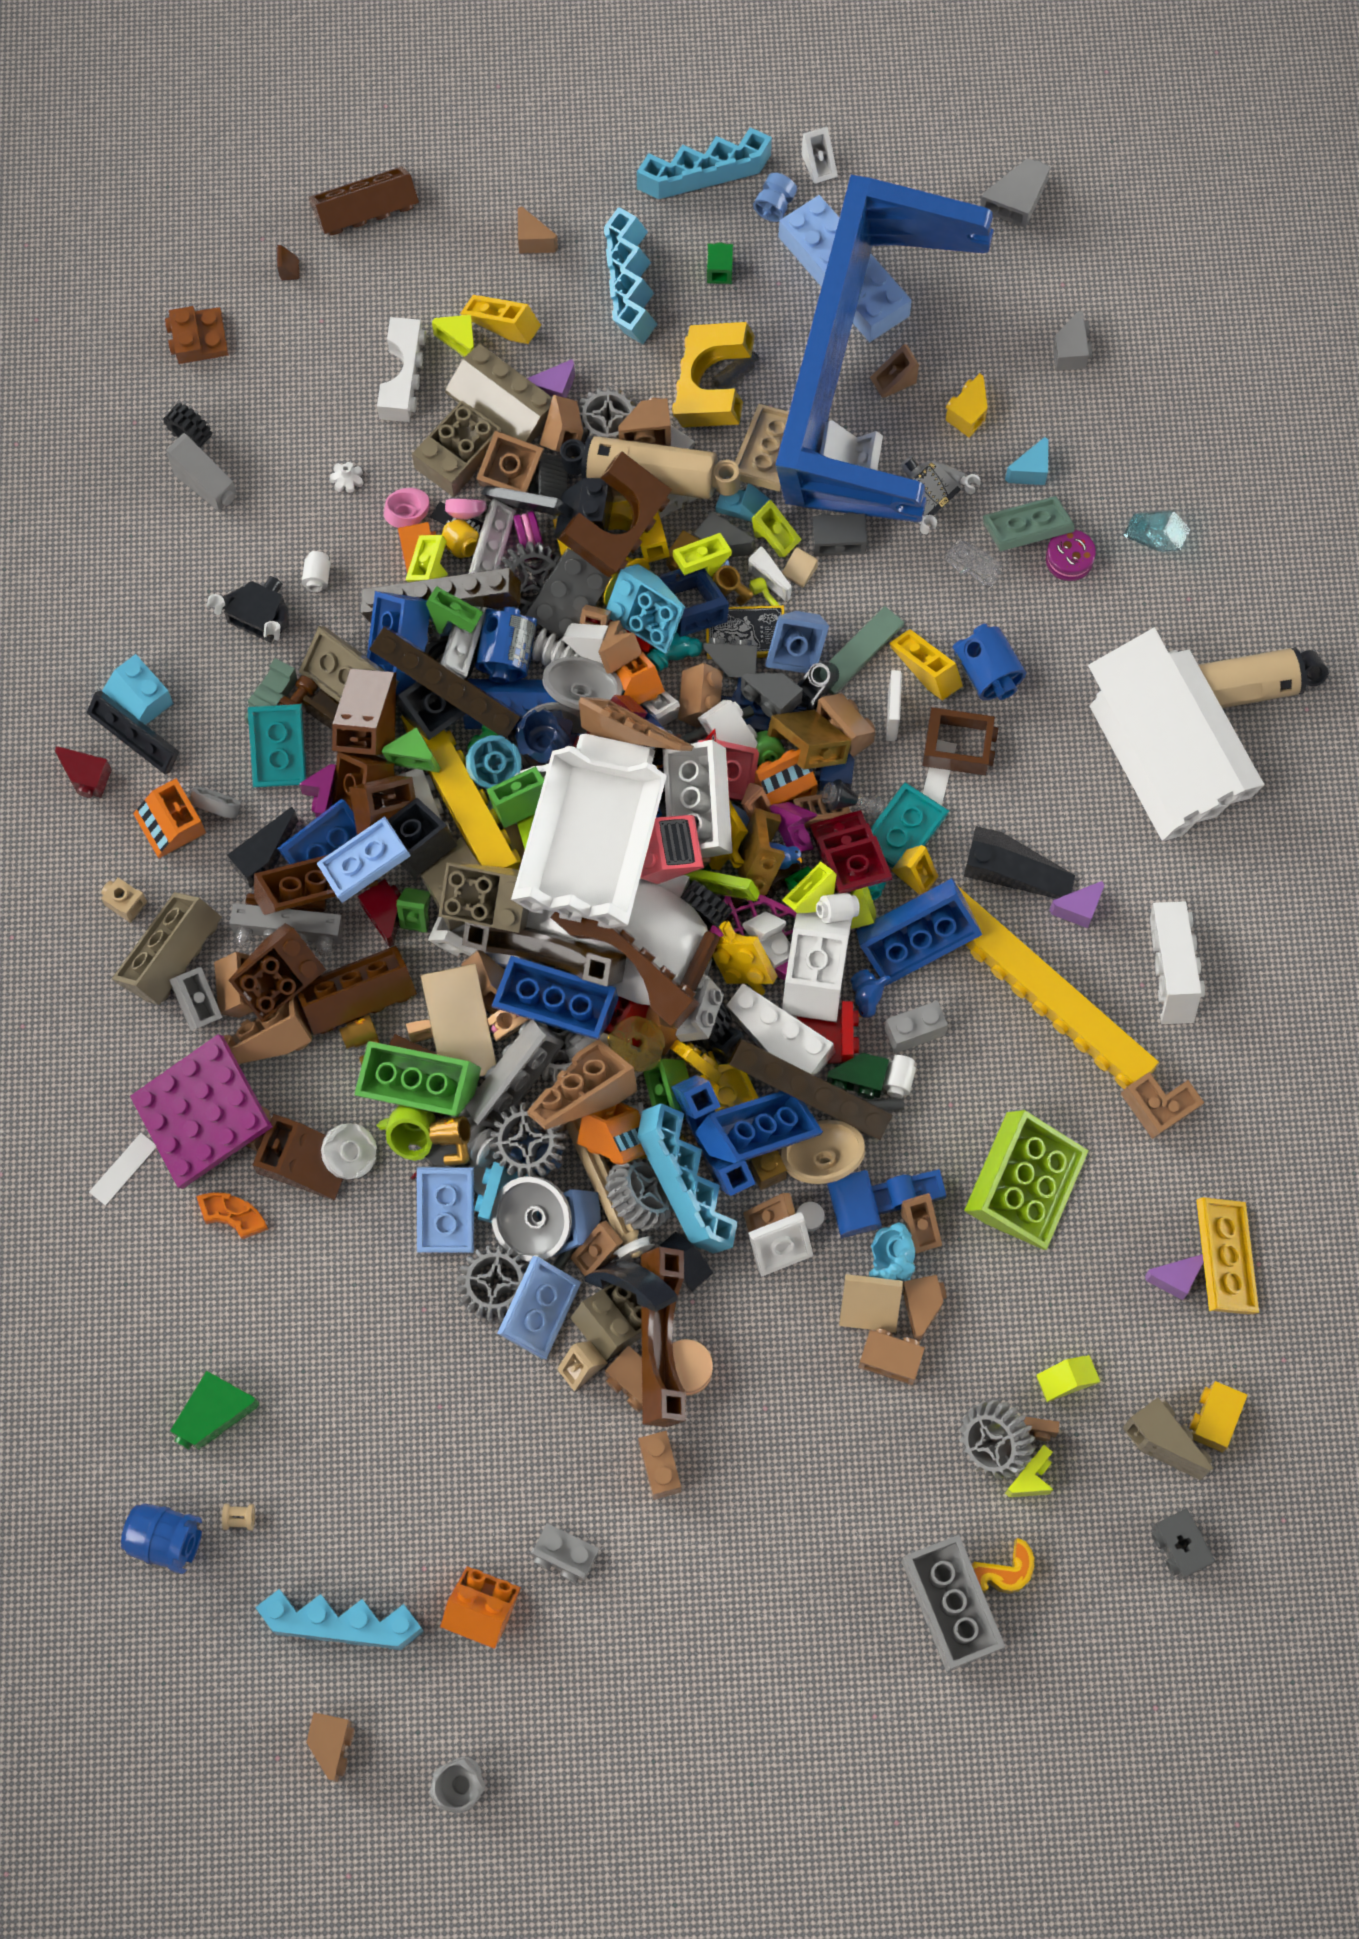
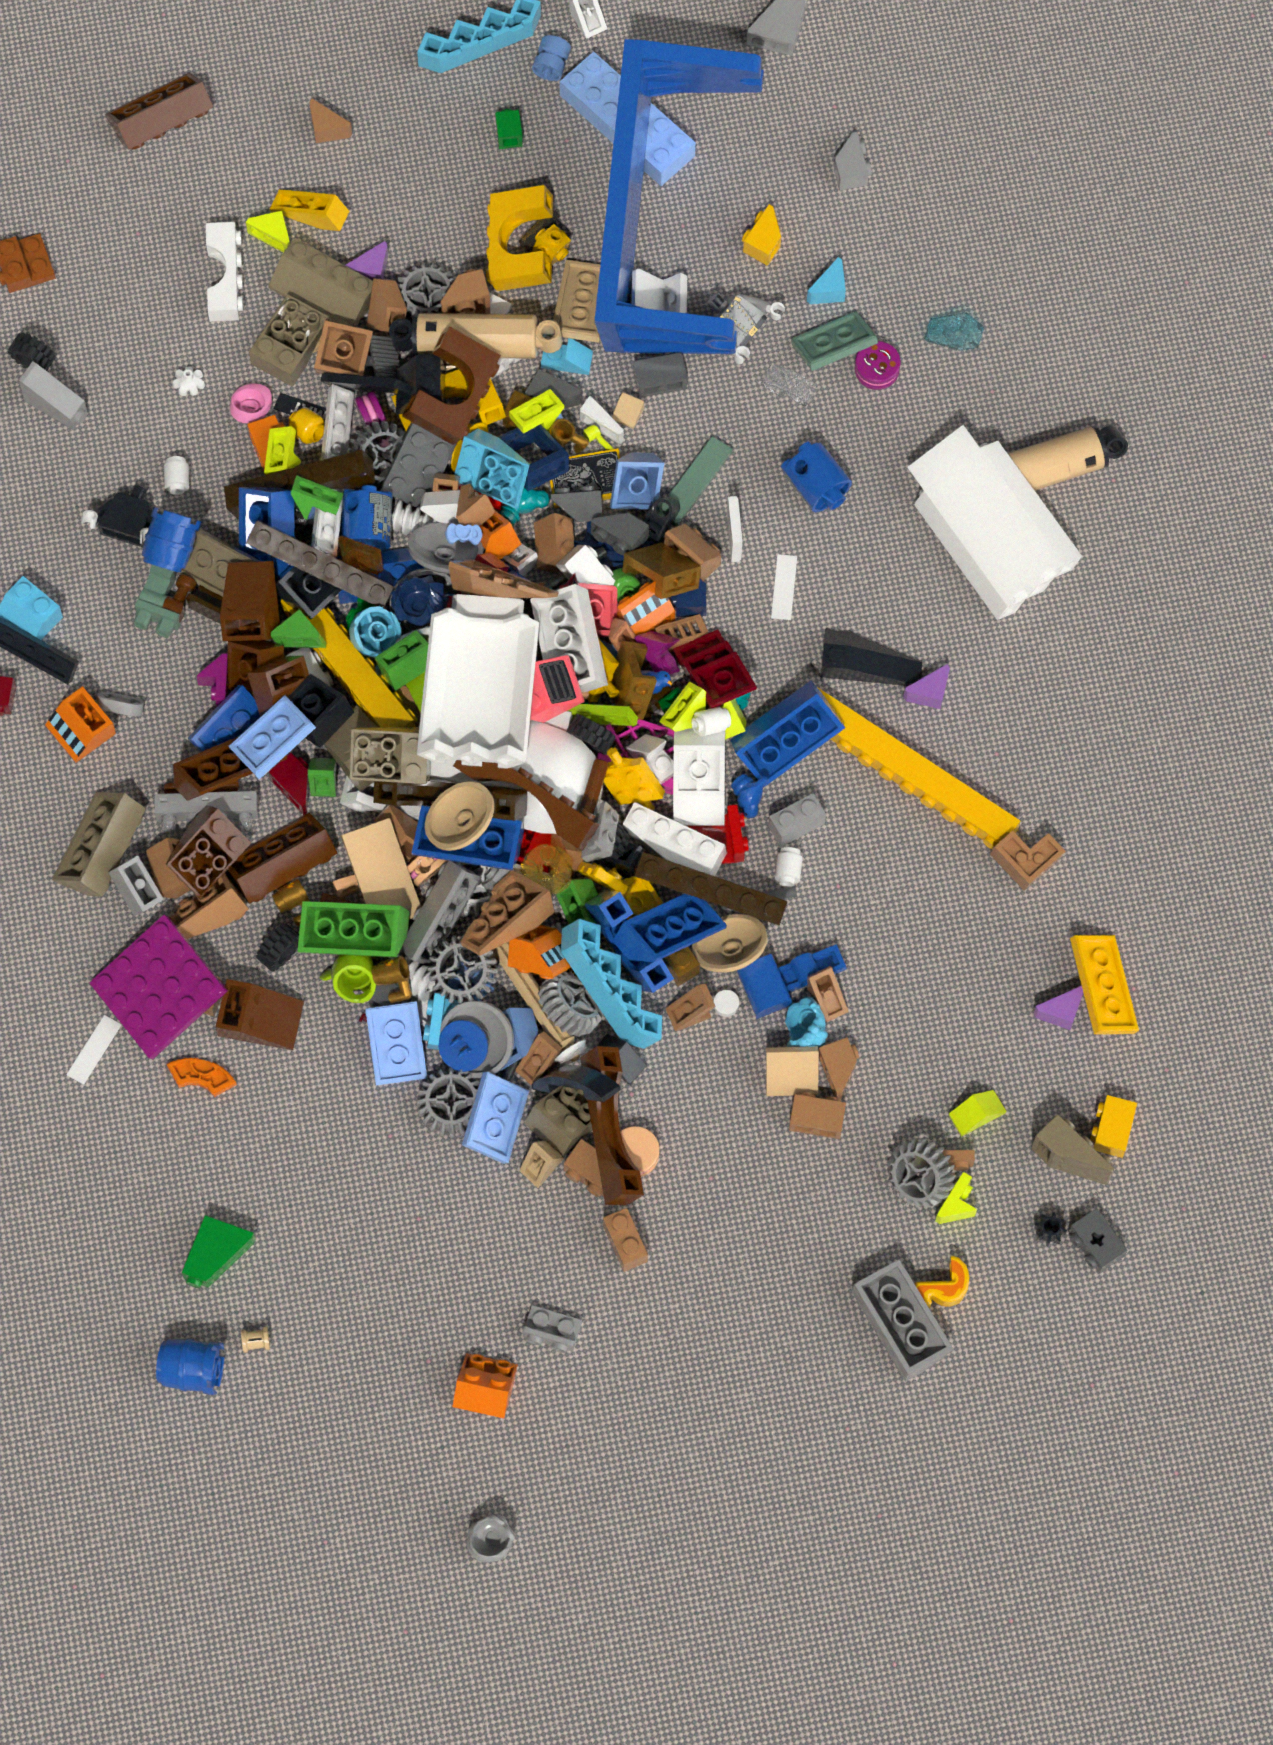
camera: 10 degrees left, 0 degrees up
(126, 906) = (53, 812): tan brick -> none
(261, 850) = (172, 741): black slope -> none
(277, 745) = (169, 643): teal tile -> none
(287, 264) = (97, 183): reddish brown slope -> none
(293, 636) = (169, 540): none -> blue piece
(328, 1742) = (369, 1520): medium nougat slope -> none
(335, 1087) = (278, 947): none -> black tyre
(349, 1151) = (299, 1003): white tile -> none
(354, 1627) = (375, 1419): medium azure brick -> none
(465, 508) = (307, 396): bright pink hat -> none
(491, 680) = (360, 555): none -> clear orange slope
(516, 1223) = (463, 1045): none -> blue piece
(548, 973) = (459, 816): none -> tan dish
(604, 671) = (463, 533): none -> light blue piece
(626, 267) = (421, 144): medium azure brick -> none
(747, 383) = (553, 243): none -> yellow brick
(774, 527) = (600, 377): neon yellow slope -> none
(781, 1244) = (704, 1030): white tile -> none
(839, 796) = (697, 619): piece -> none
(861, 1075) = (753, 870): dark green slope -> none
(896, 373) = (691, 213): medium nougat slope -> none
(907, 823) = (763, 638): teal tile -> none
(916, 869) = (777, 676): yellow slope -> none
(928, 664) = (760, 485): yellow slope -> none
(954, 761) = (799, 573): reddish brown window -> none
(1026, 1179) = (916, 942): lime slope -> none
(1132, 1514) = (1049, 1236): none -> black gear
(1176, 962) = (1024, 728): white wedge -> none

